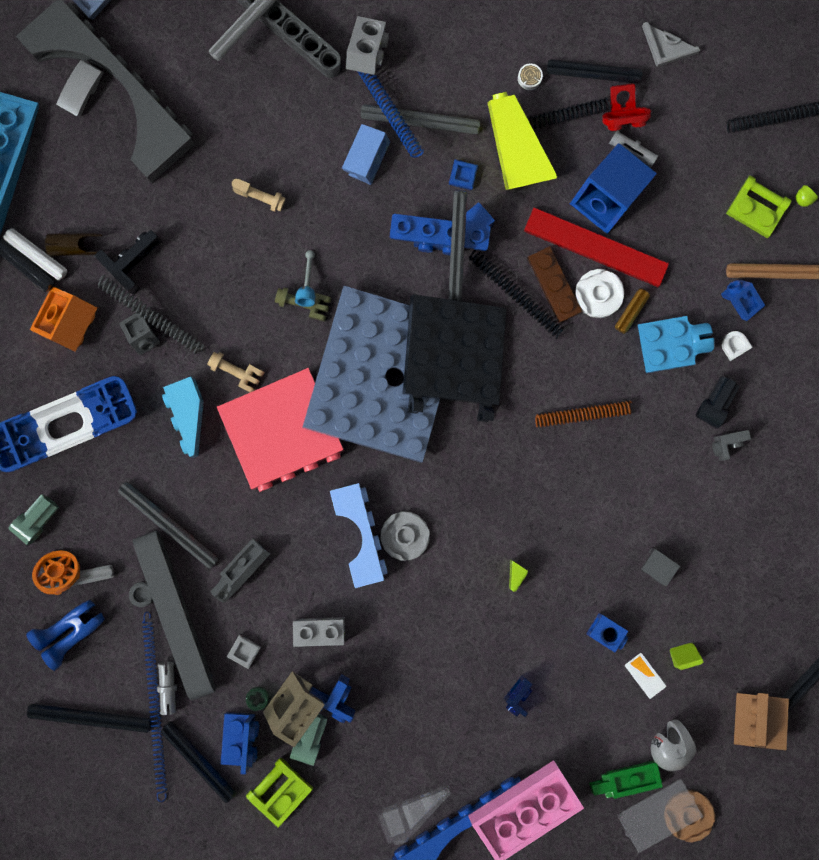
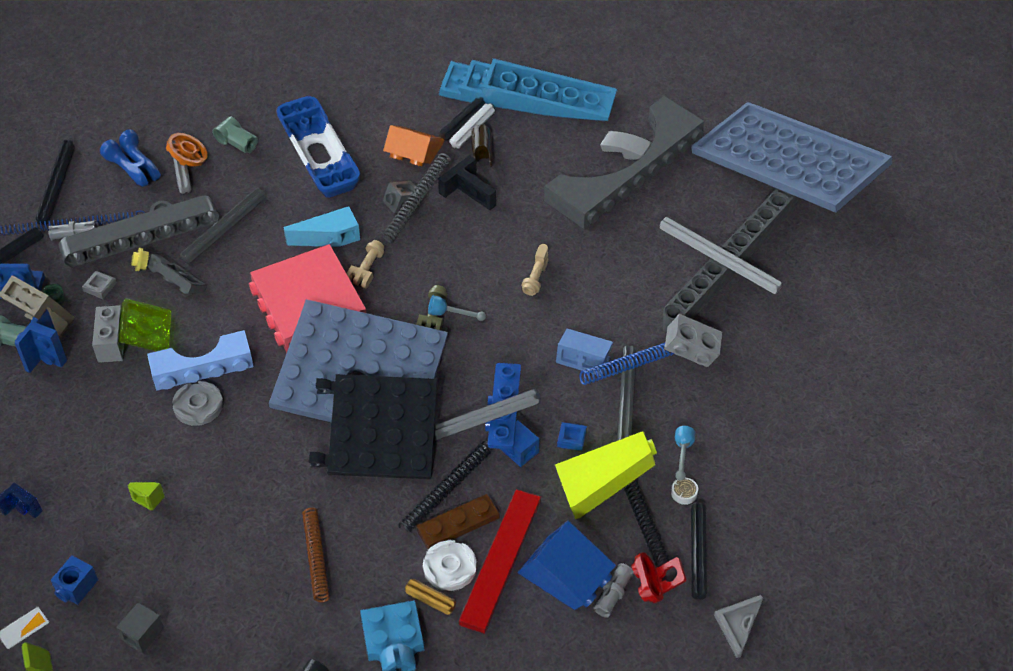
camera: 90 degrees right, 35 degrees down
(216, 610) = (140, 259): none -> light yellow plate
(312, 595) = (144, 325): none -> clear neon green plate
(476, 69) = (684, 439): none -> hinge

